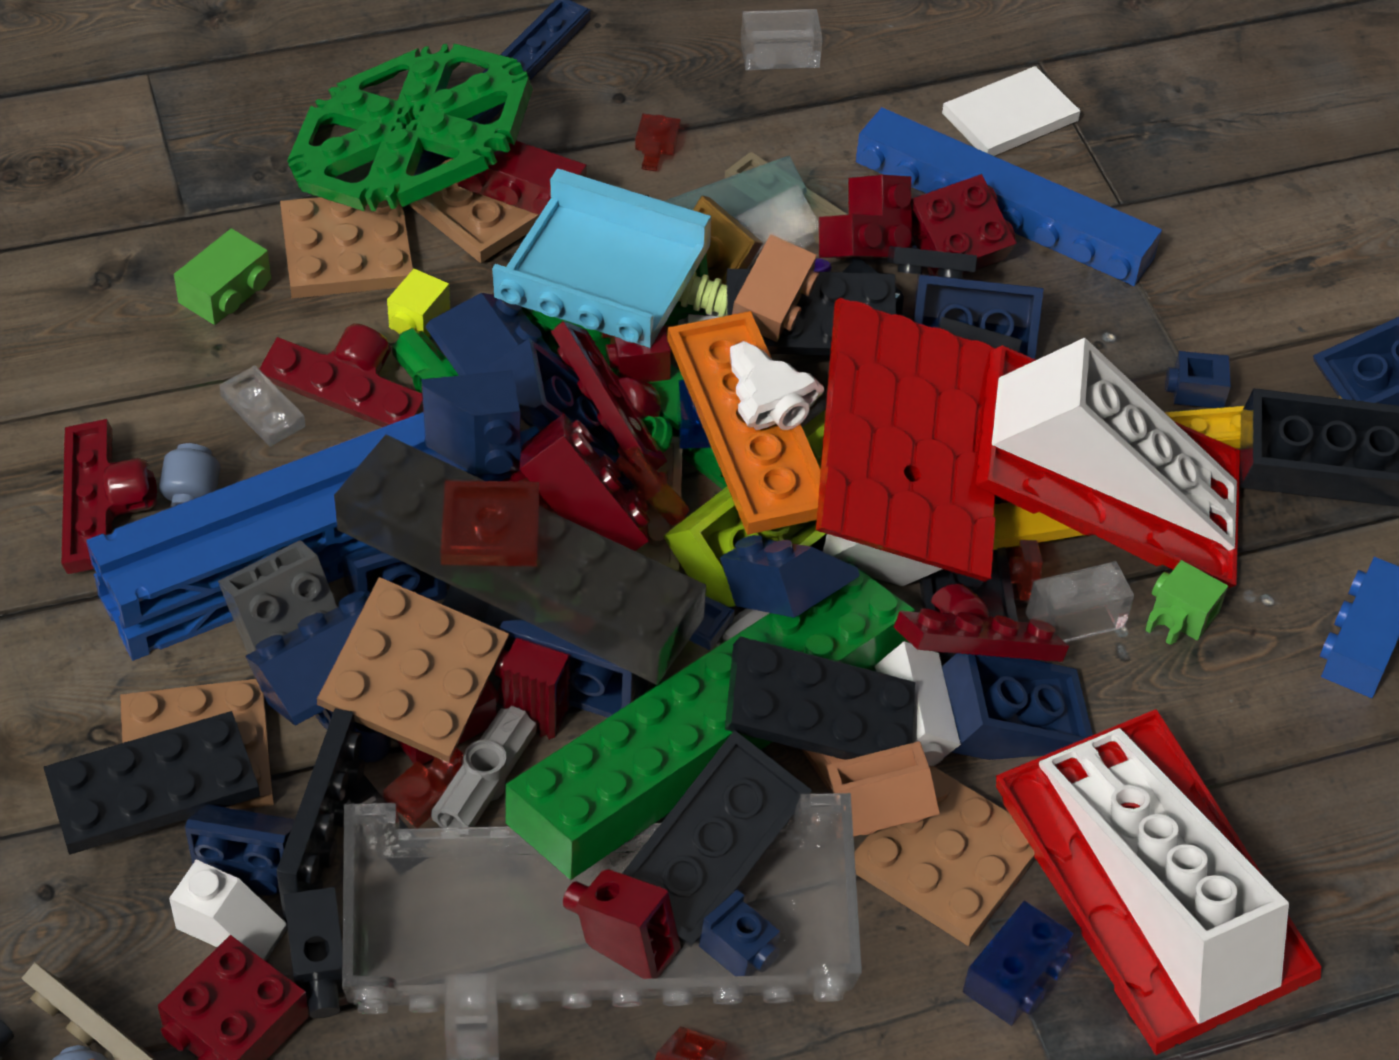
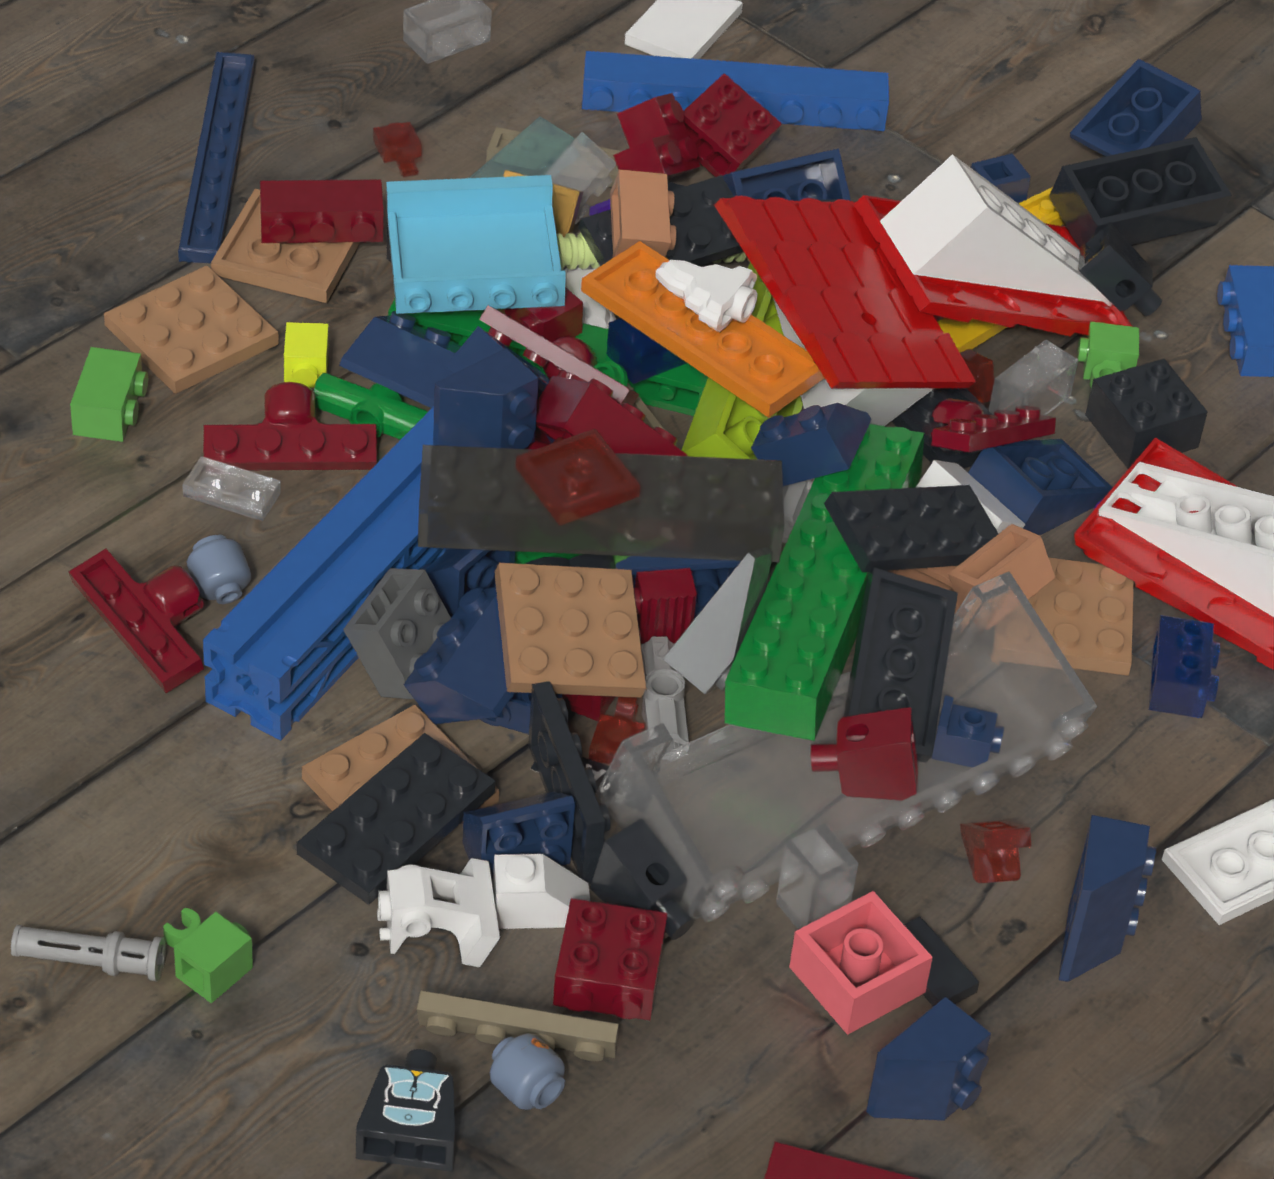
camera: 30 degrees left, 5 degrees down
(141, 909) = (468, 913): none -> white tile
(400, 129) = (215, 194): green plate -> none
(562, 716) = (714, 637): none -> slope
(653, 486) = (652, 409): clear red axle -> none
(949, 264) = (746, 155): black plate -> none
(1180, 675) = (1145, 404): none -> black brick
(1250, 518) = (1118, 271): none -> black torso

